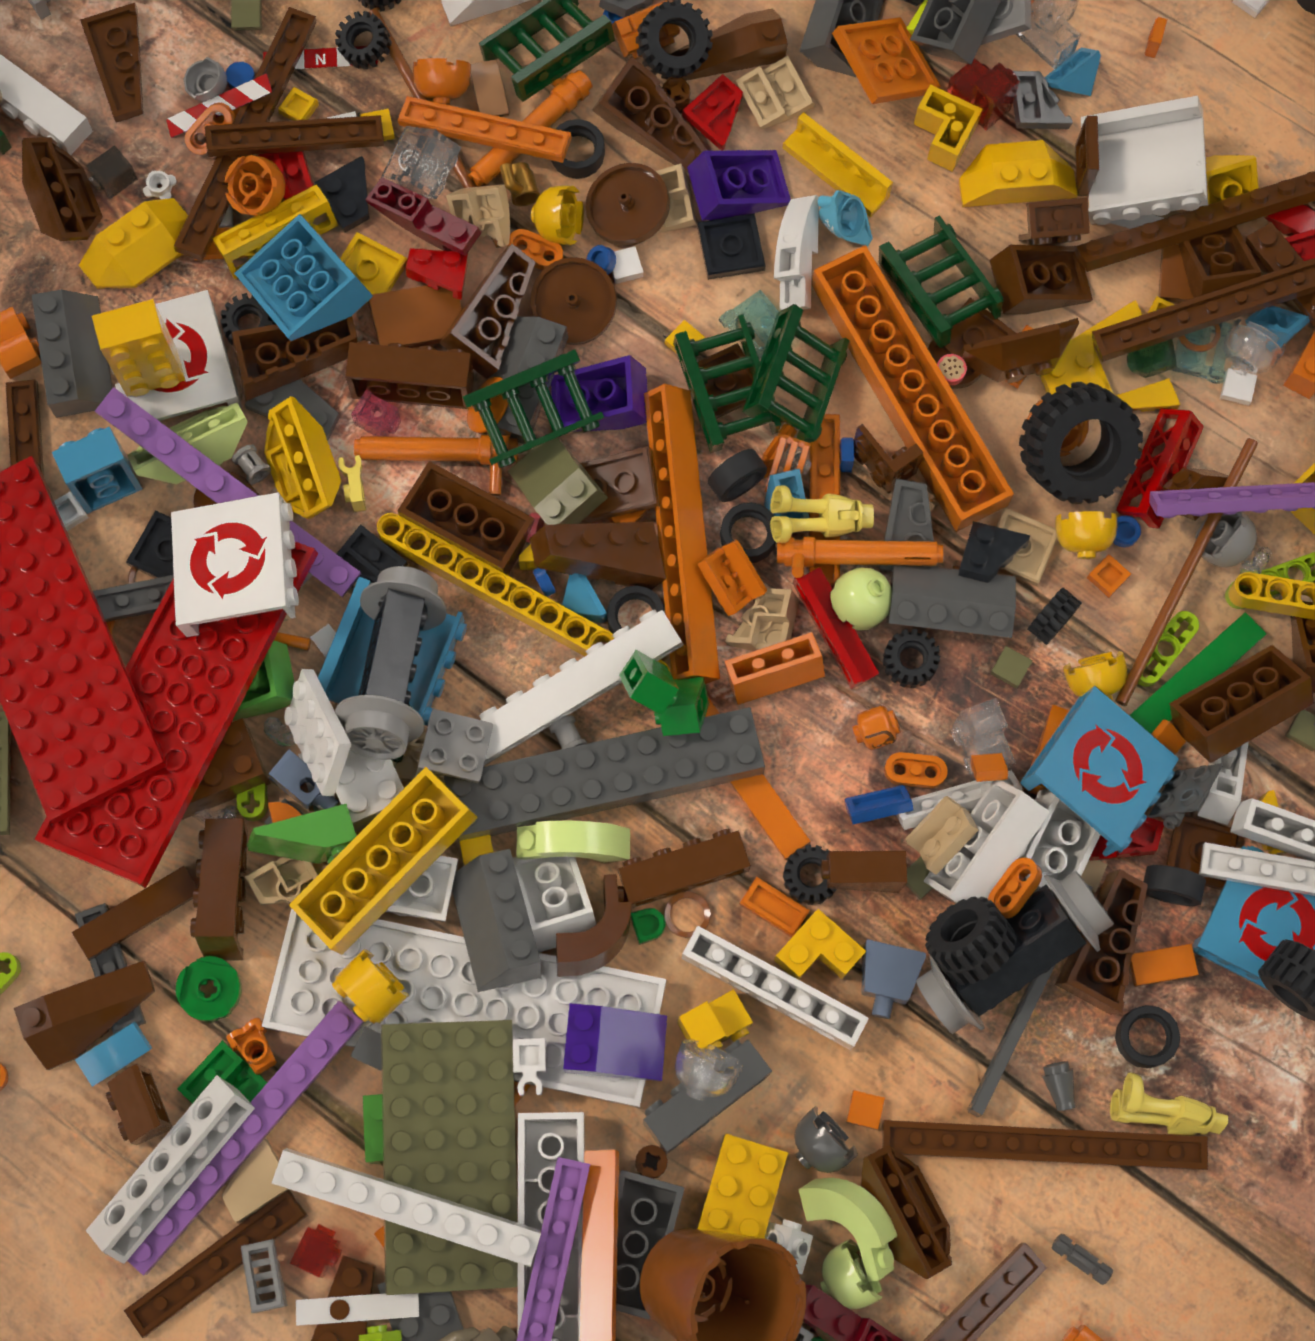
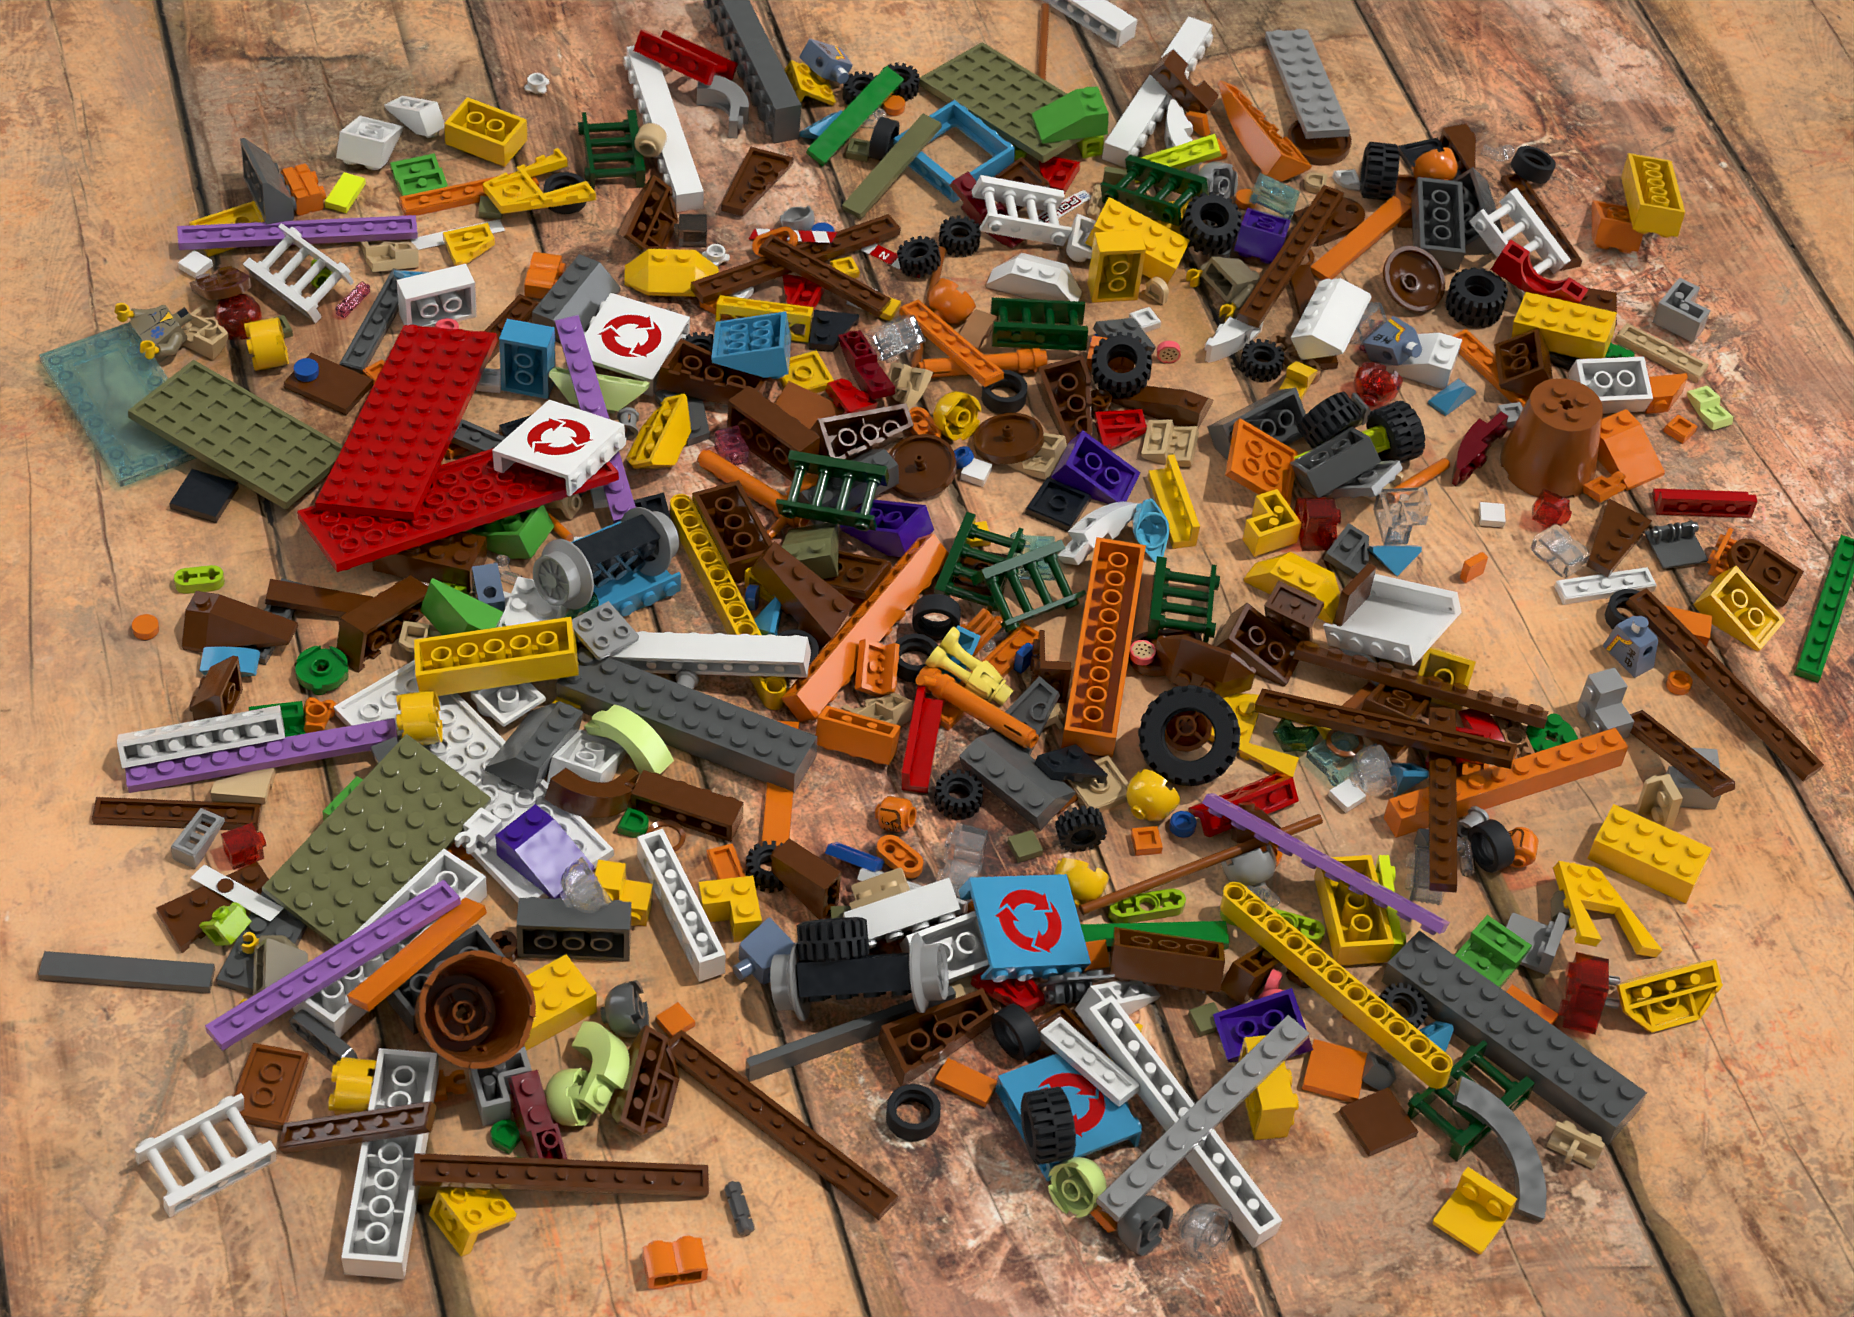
camera: 35 degrees right, 25 degrees down
(138, 348) = (612, 301): yellow brick -> none
(254, 185) = (773, 281): orange cylinder -> none
(317, 732) = (521, 563): white plate -> none
(354, 490) = (680, 475): light yellow plate -> none
(406, 1206) = (322, 834): white brick -> none
(520, 182) = (945, 384): pearl gold piece -> none
(649, 682) = (758, 664): green brick -> none
(688, 711) = (772, 704): green brick -> none
(793, 1239) = (545, 1050): white brick -> none
(862, 598) = (953, 734): yellowish green cylinder -> none
(989, 767) = (945, 871): orange tile -> none
(1014, 888) = (896, 936): orange plate -> none
(1060, 1083) = (824, 1096): dark grey cone -> none
(1180, 1114) = (891, 1167): light yellow piece -> none

